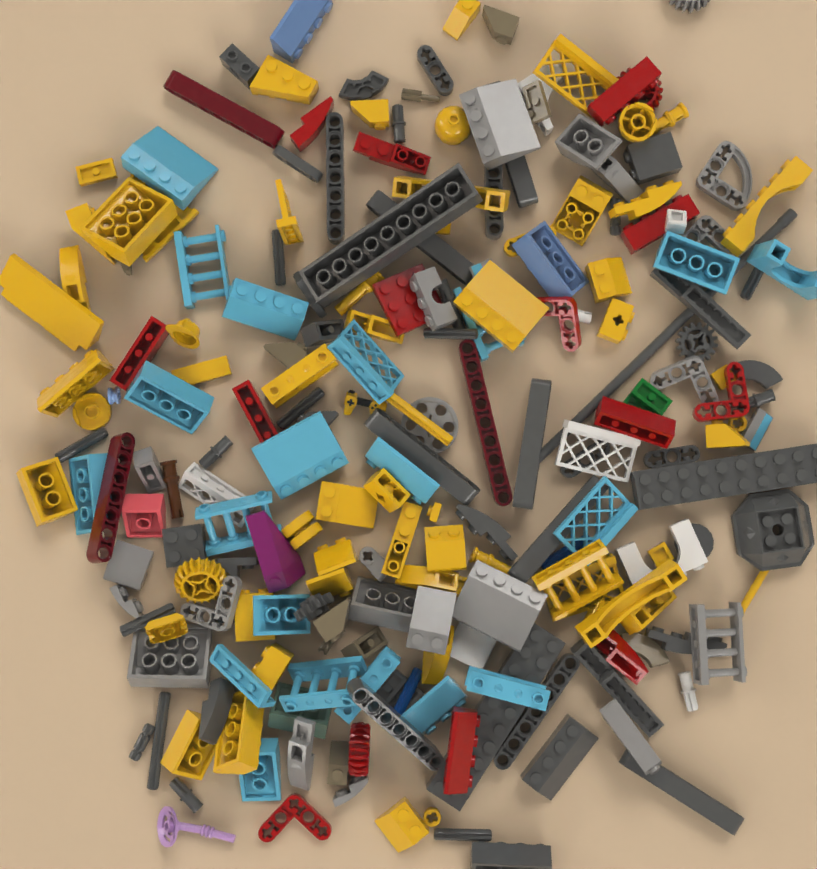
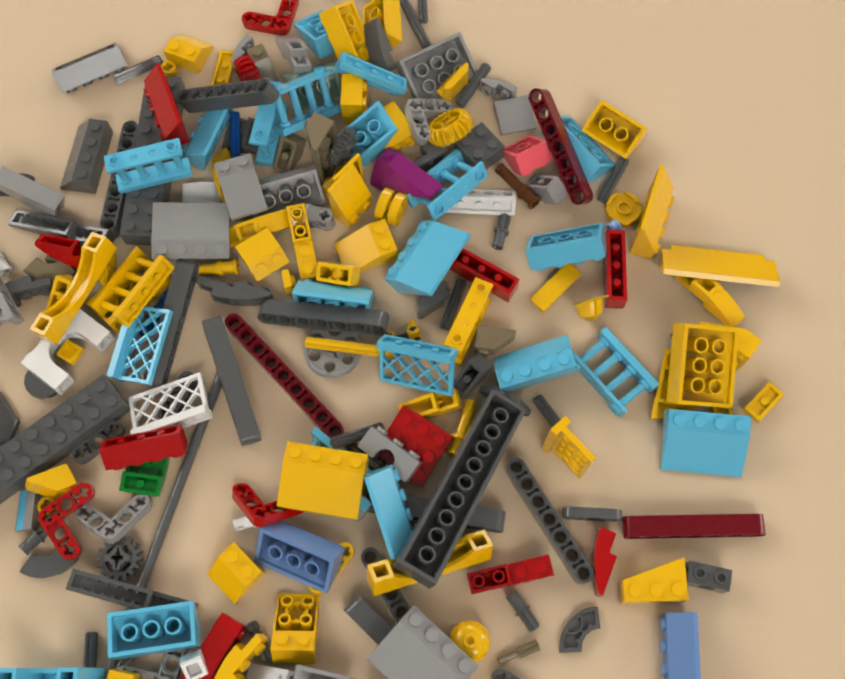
camera: 150 degrees right, 15 degrees down
(372, 112) = (552, 606): yellow slope -> none
(381, 780) = (224, 69): none -> yellow tile
(458, 250) = (390, 507): none -> medium azure slope
(608, 329) = (215, 544): yellow brick -> none
(719, 378) = (85, 541): yellow tile -> none

